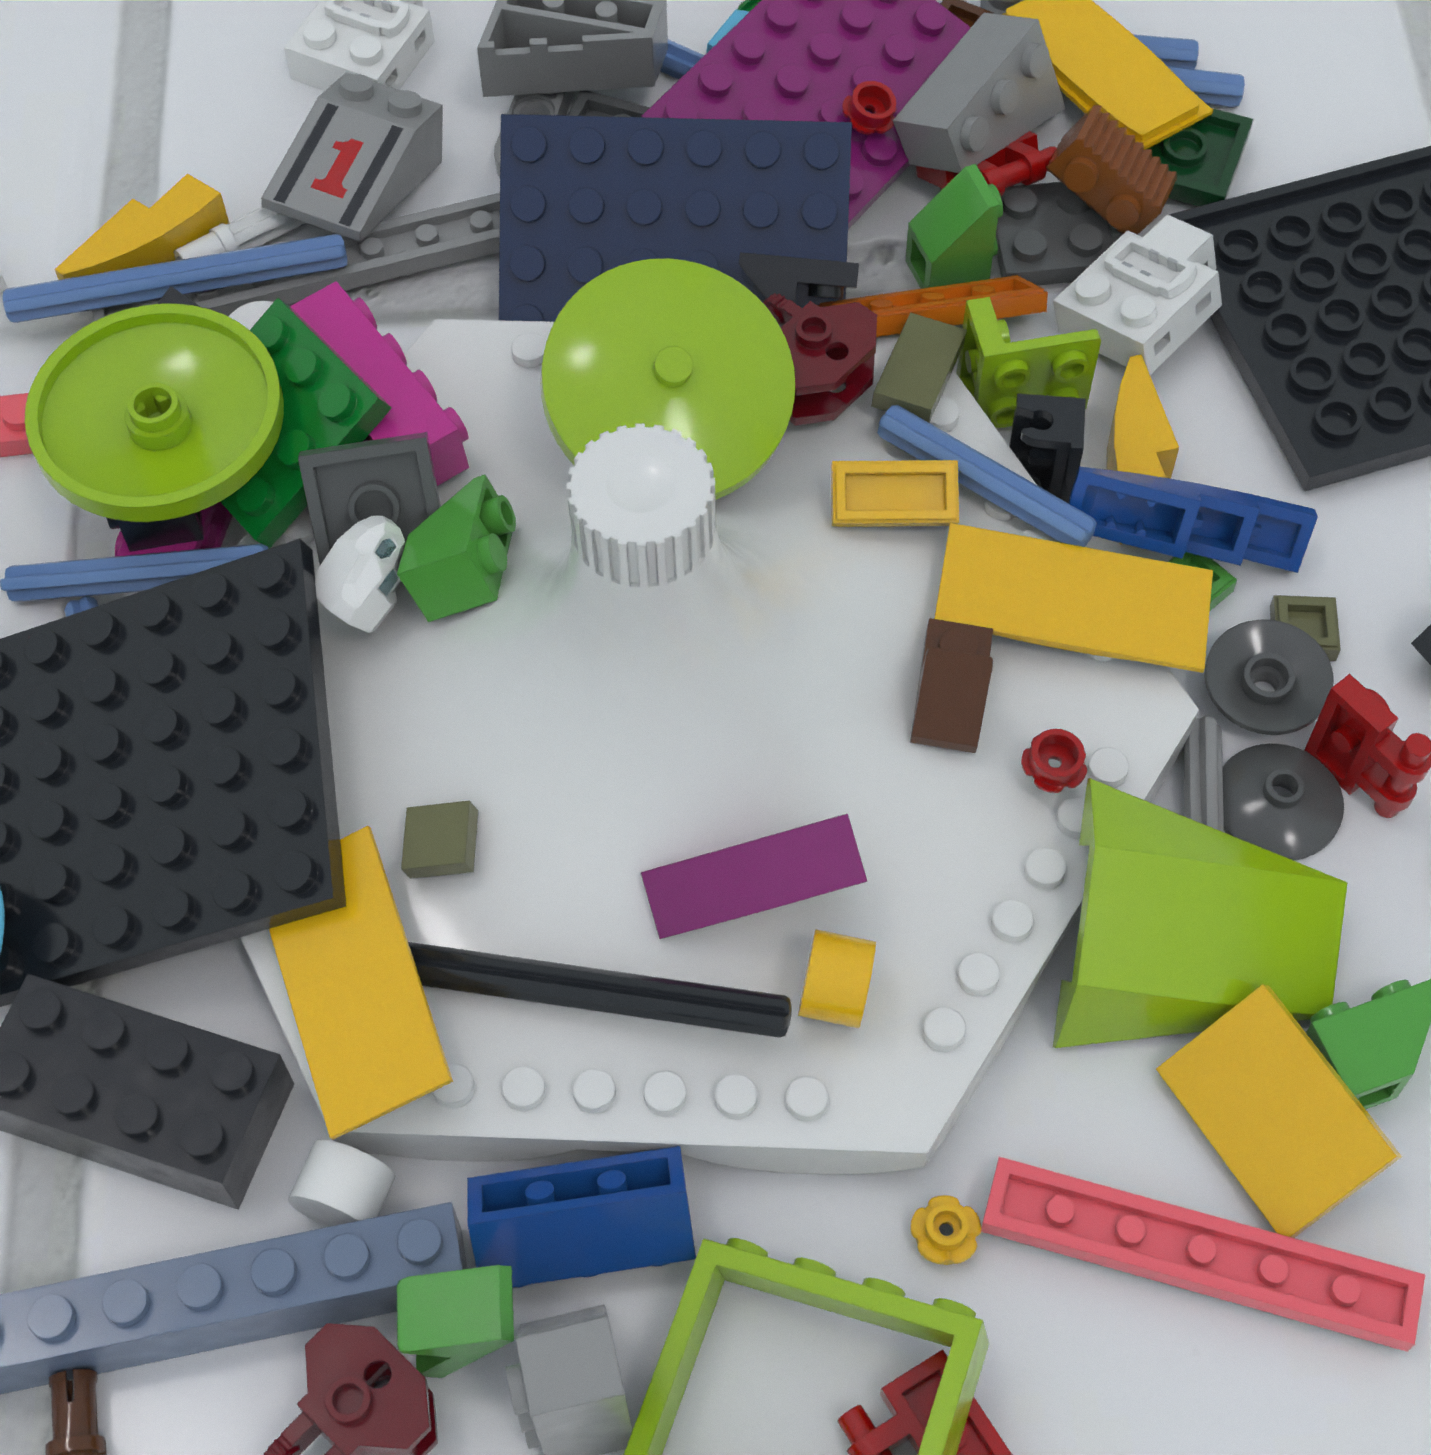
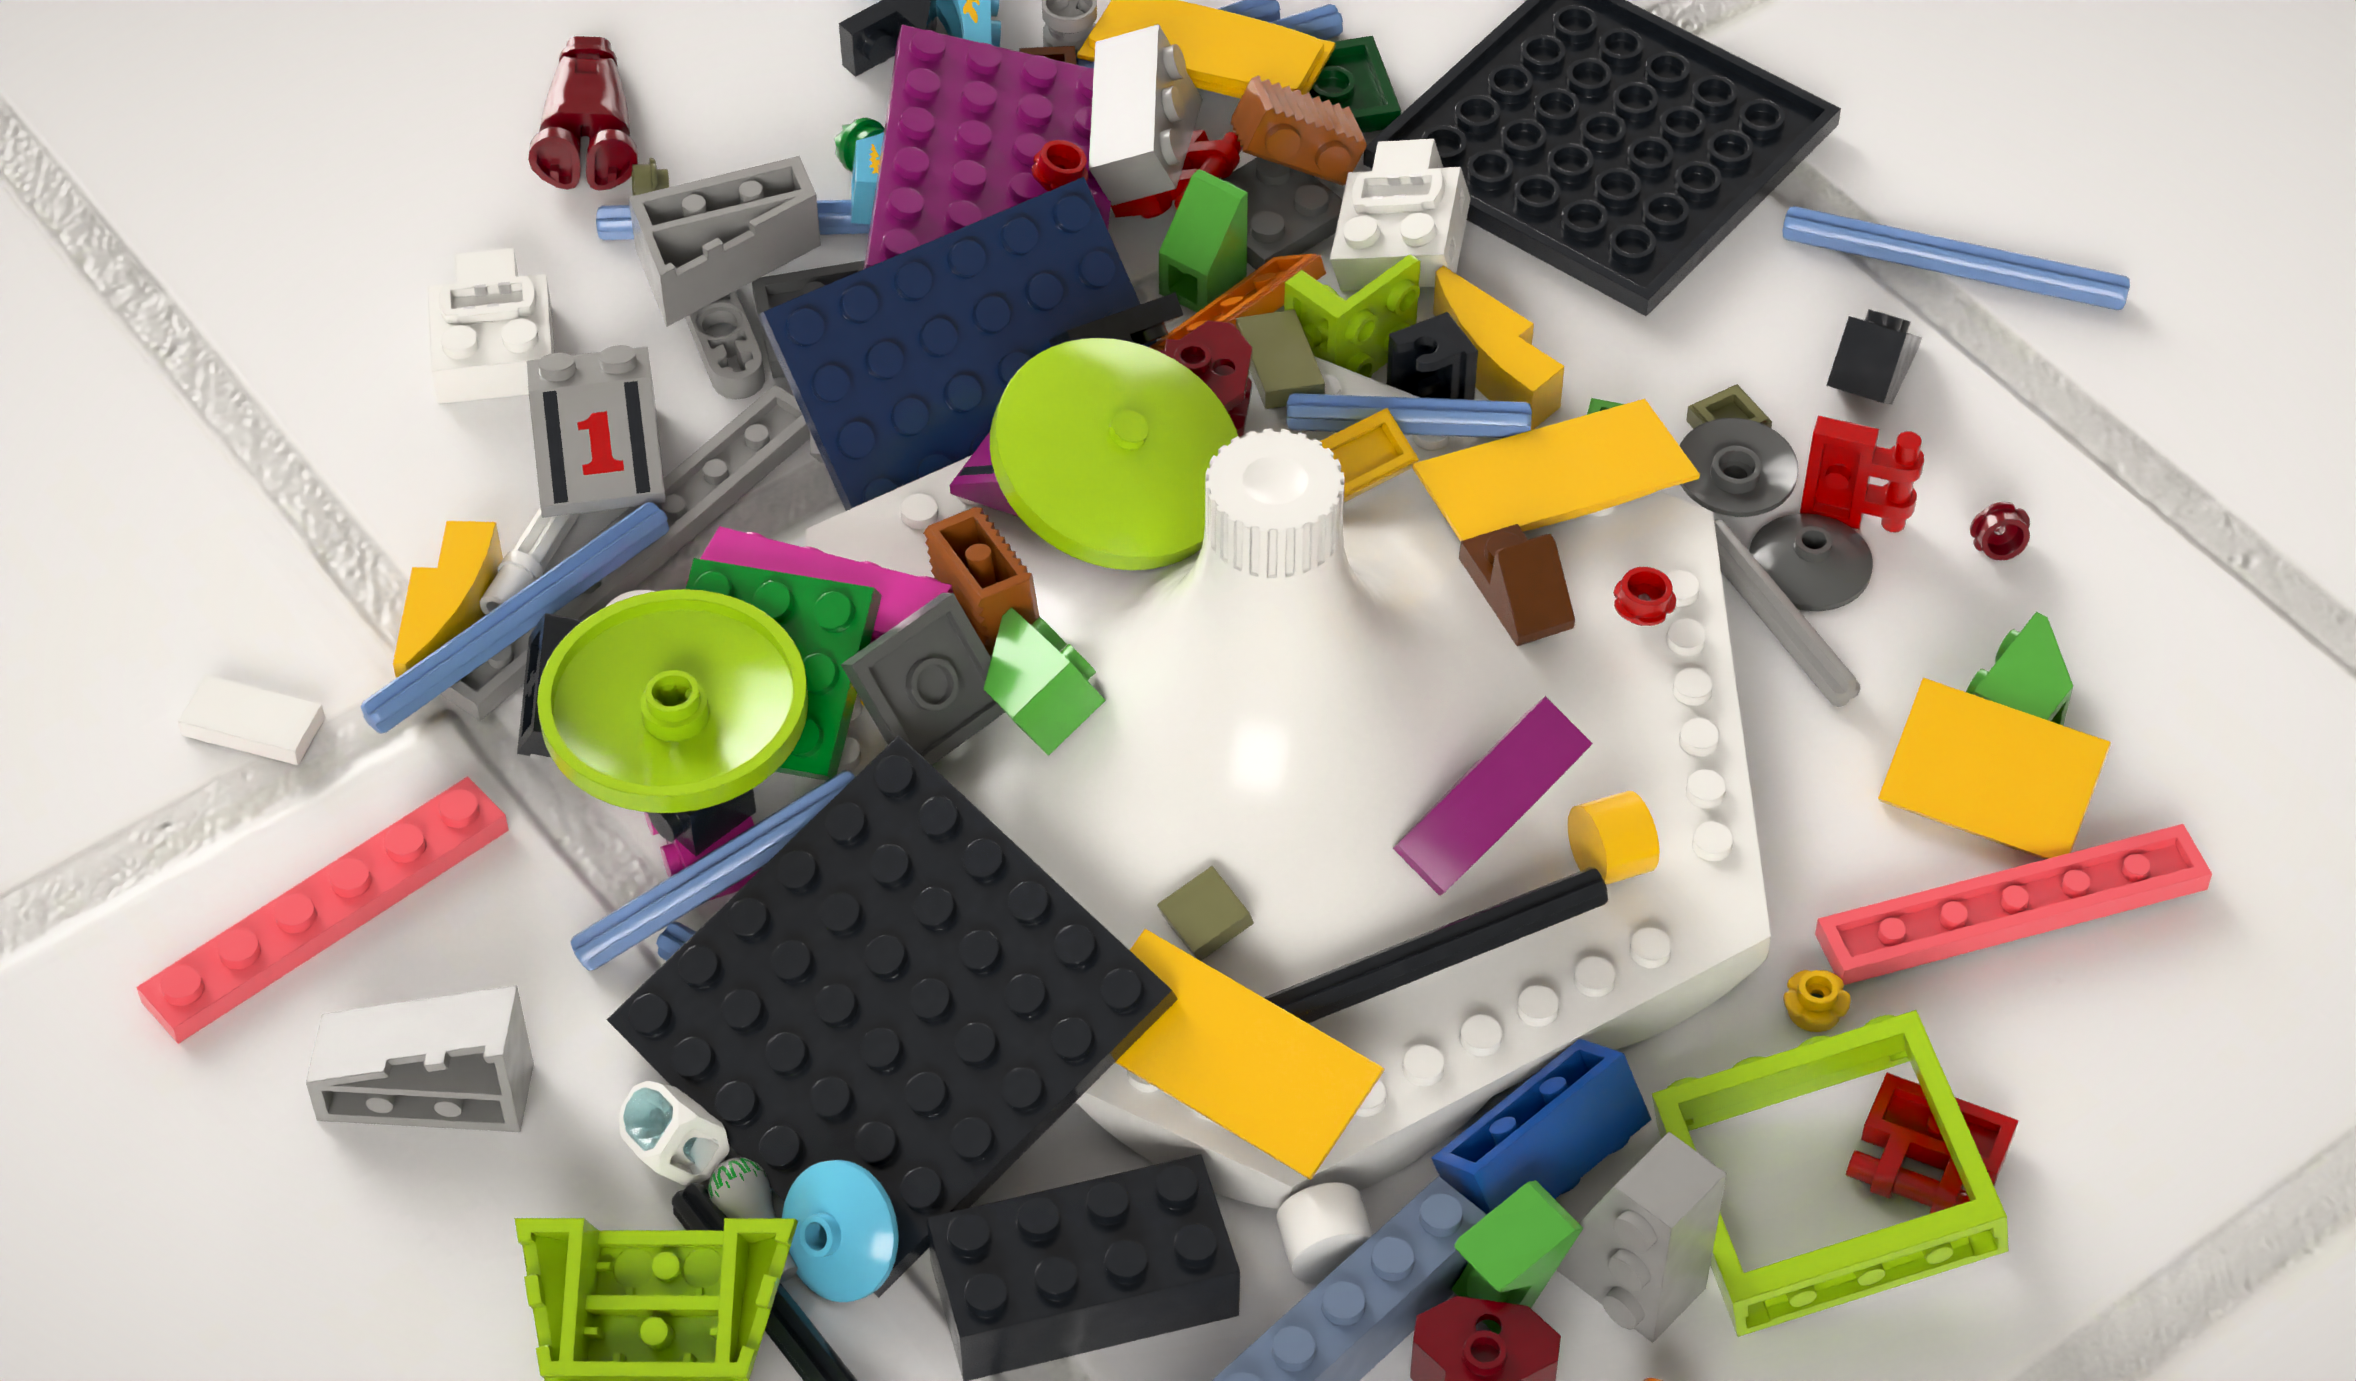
camera: 35 degrees left, 10 degrees down
(361, 573) = (967, 739): white rock -> none
(496, 431) = (982, 571): none -> dark orange brick
(1189, 926) = (1828, 674): lime wedge -> none
(1193, 518) = (1593, 370): blue slope -> none

